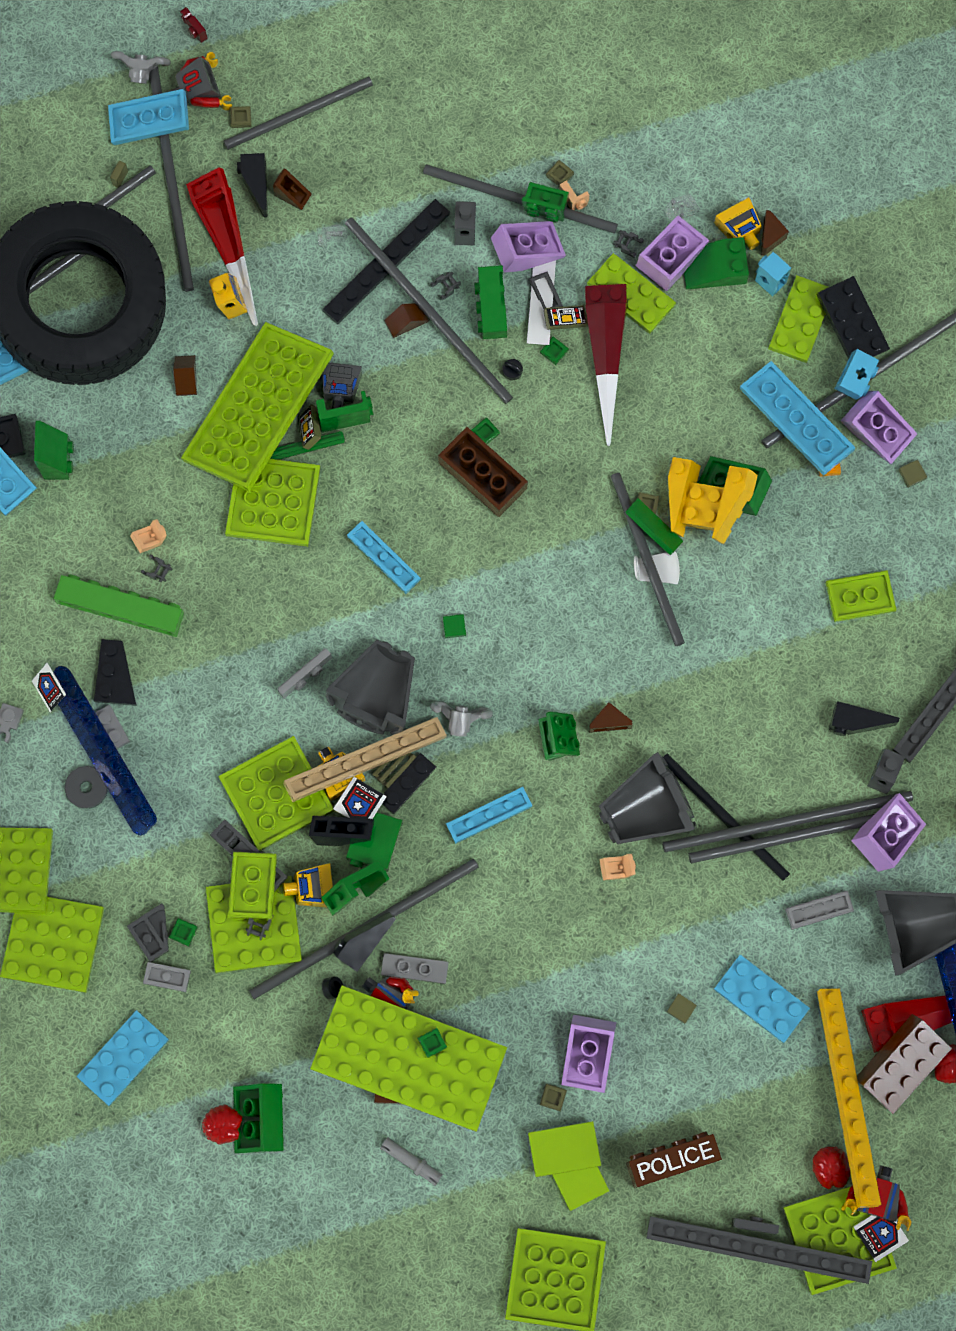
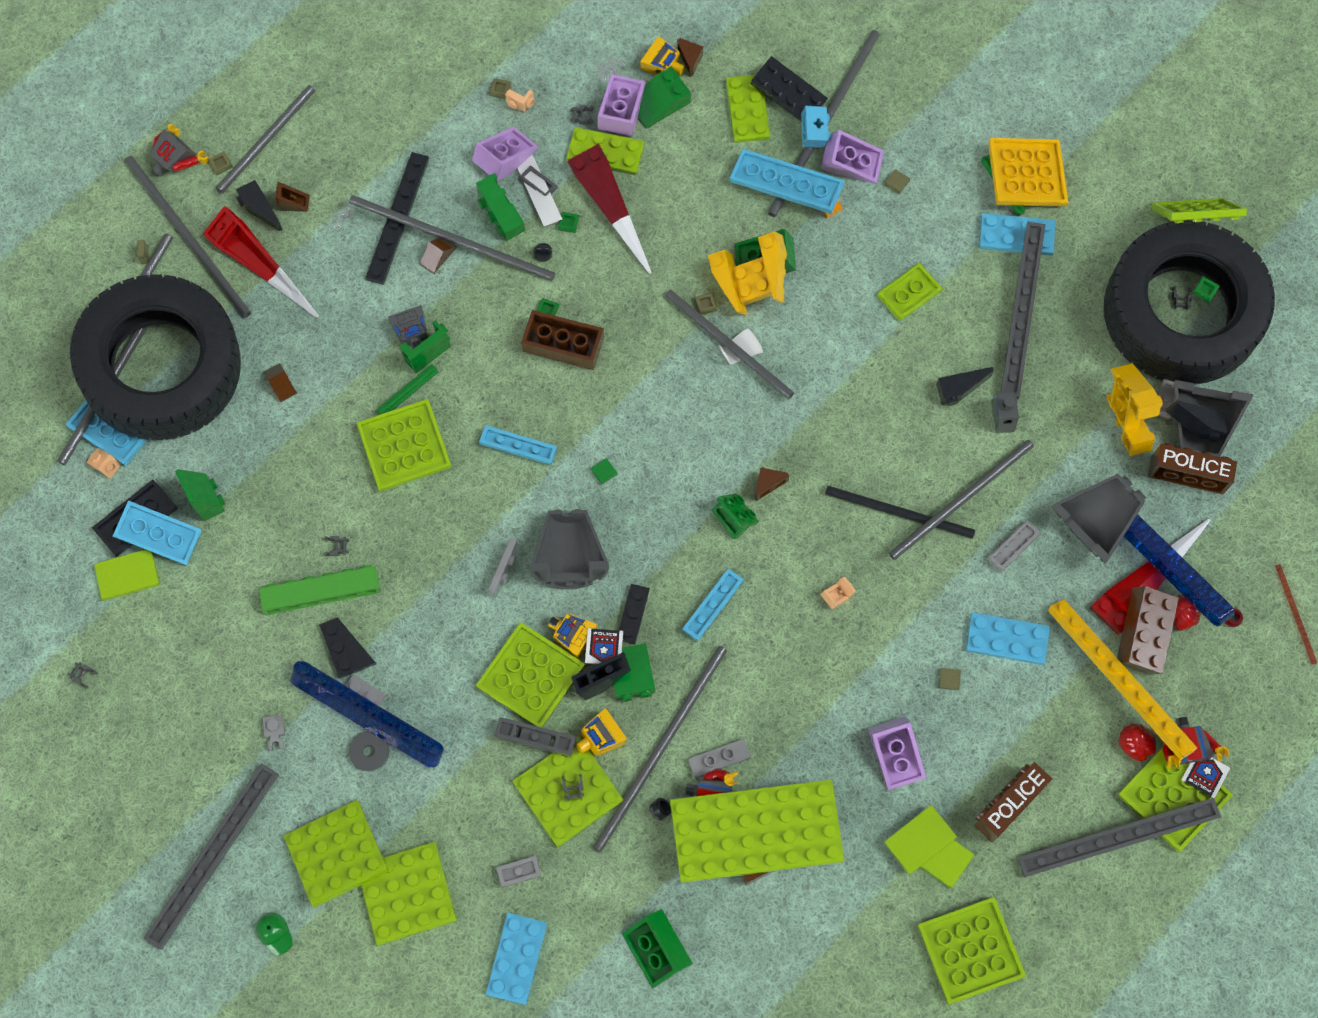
camera: 25 degrees left, 5 degrees down
(48, 687) = (295, 685): sticker -> none
(140, 66) = (116, 160): light grey piece -> none
(148, 117) = (144, 196): medium azure plate -> none
(149, 537) = (317, 522): light nougat bracket -> none
(151, 933) = (486, 842): dark grey wing -> none
(183, 932) = (512, 828): green tile -> none
(195, 28) = (148, 112): dark red plate -> none
(222, 1124) = (630, 969): red hair -> none
(227, 291) = (280, 300): yellow torso -> none
(252, 885) = (551, 758): lime tile -> none
(257, 406) = (352, 377): lime plate -> none
(309, 427) = (404, 372): tile -> none
(361, 942) = (665, 760): black slope -> none
(364, 759) = (589, 610): tan plate -> none
(367, 879) = (640, 710): green panel -> none
(382, 779) = (619, 589): olive tile -> none
(419, 1166) = (802, 916): light grey pin -> none
(432, 1042) = (770, 807): green tile -> none
(442, 279) = (449, 210): dark grey piece -> none
(460, 717) = (648, 539): light grey piece -> none
(465, 220) = (443, 154): dark grey torso -> none
(514, 196) = (479, 121): dark grey piece -> none
(545, 202) = (501, 113): green bracket -> none
(553, 1097) = (887, 803): olive tile -> none
(565, 317) = (563, 192): tile -> none
(647, 805) = (835, 532): dark grey cone -> none
(654, 526) = (721, 316): green tile -> none
(755, 1224) = (1104, 819): dark grey plate -> none
(772, 273) = (708, 83): medium azure brick -> none
(782, 822) = (950, 490): dark grey piece -> none
(889, 833) = (1034, 459): lavender slope -> none

